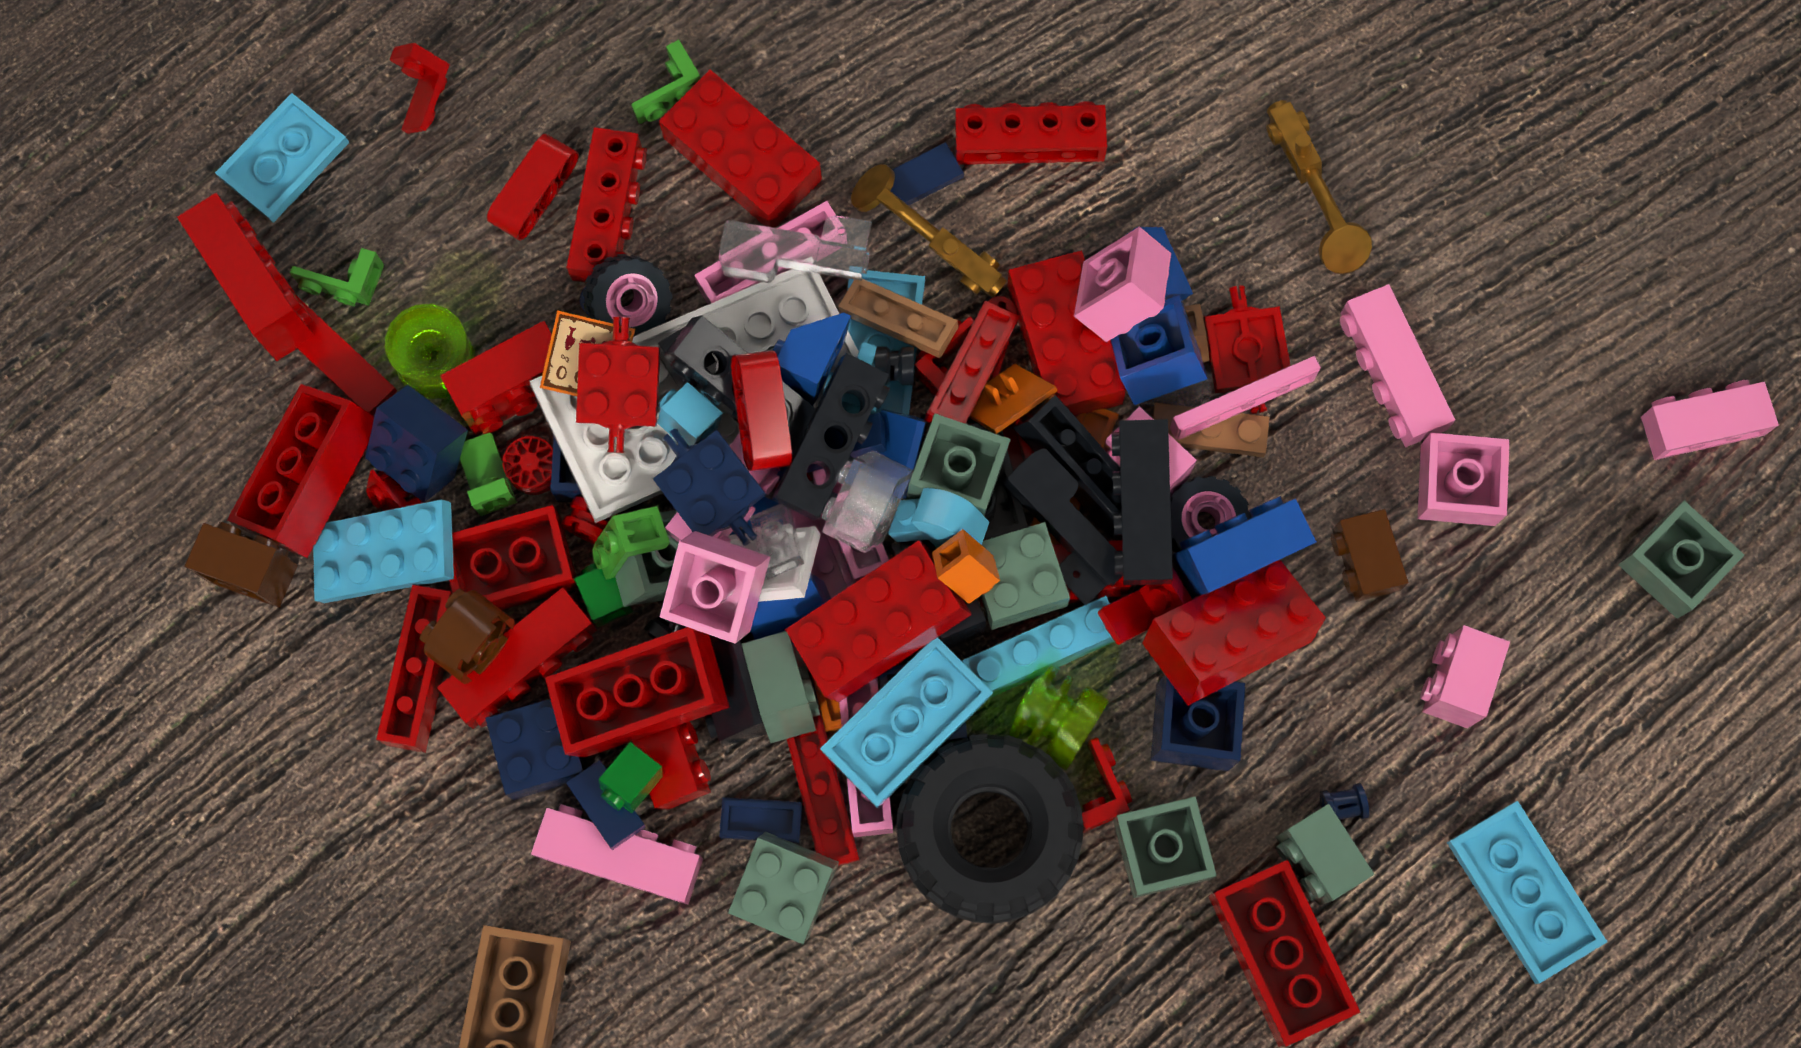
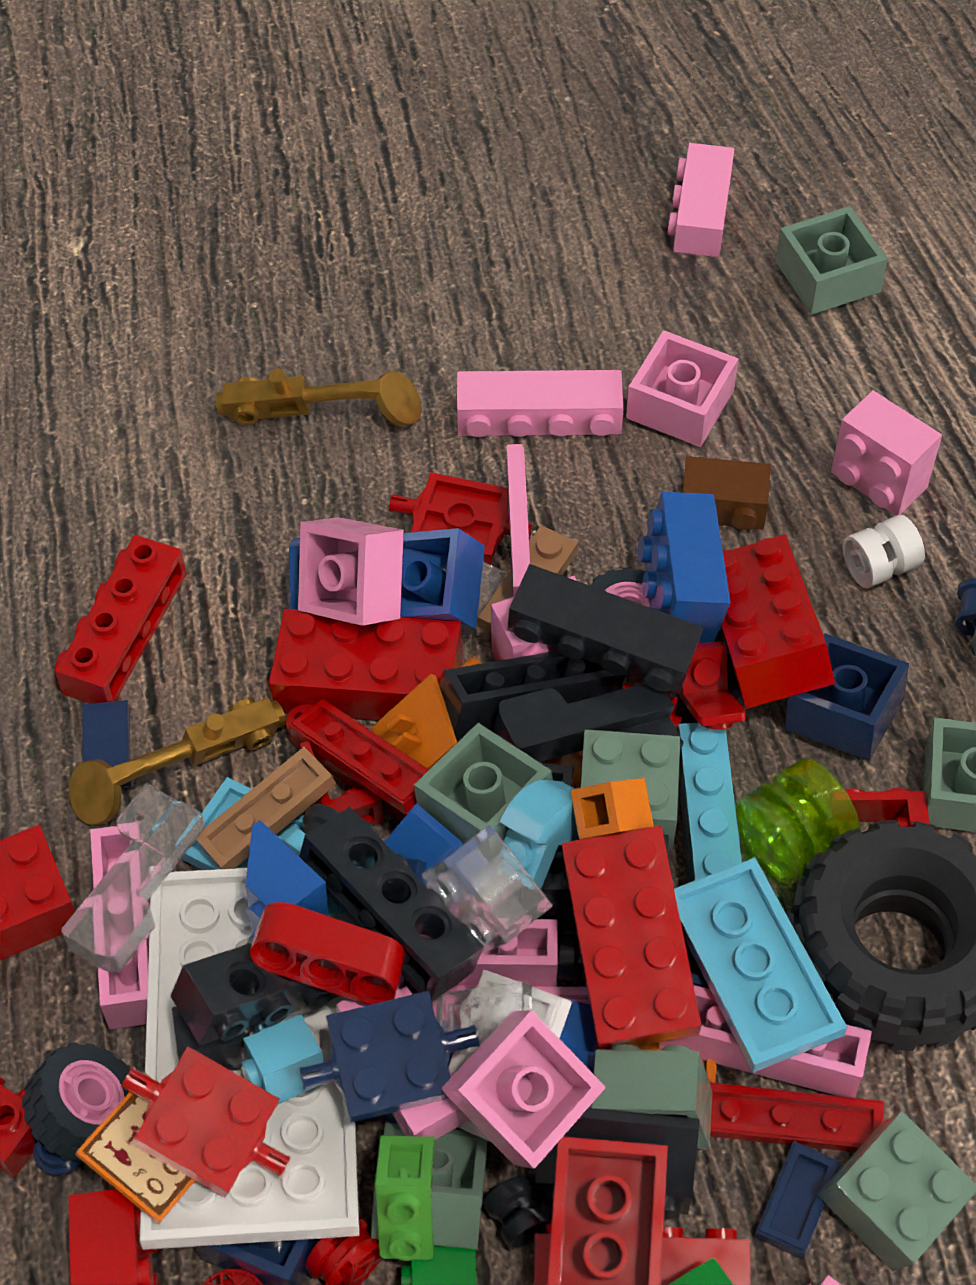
camera: 70 degrees left, 20 degrees down
(1377, 716) = (883, 551): none -> white wheel

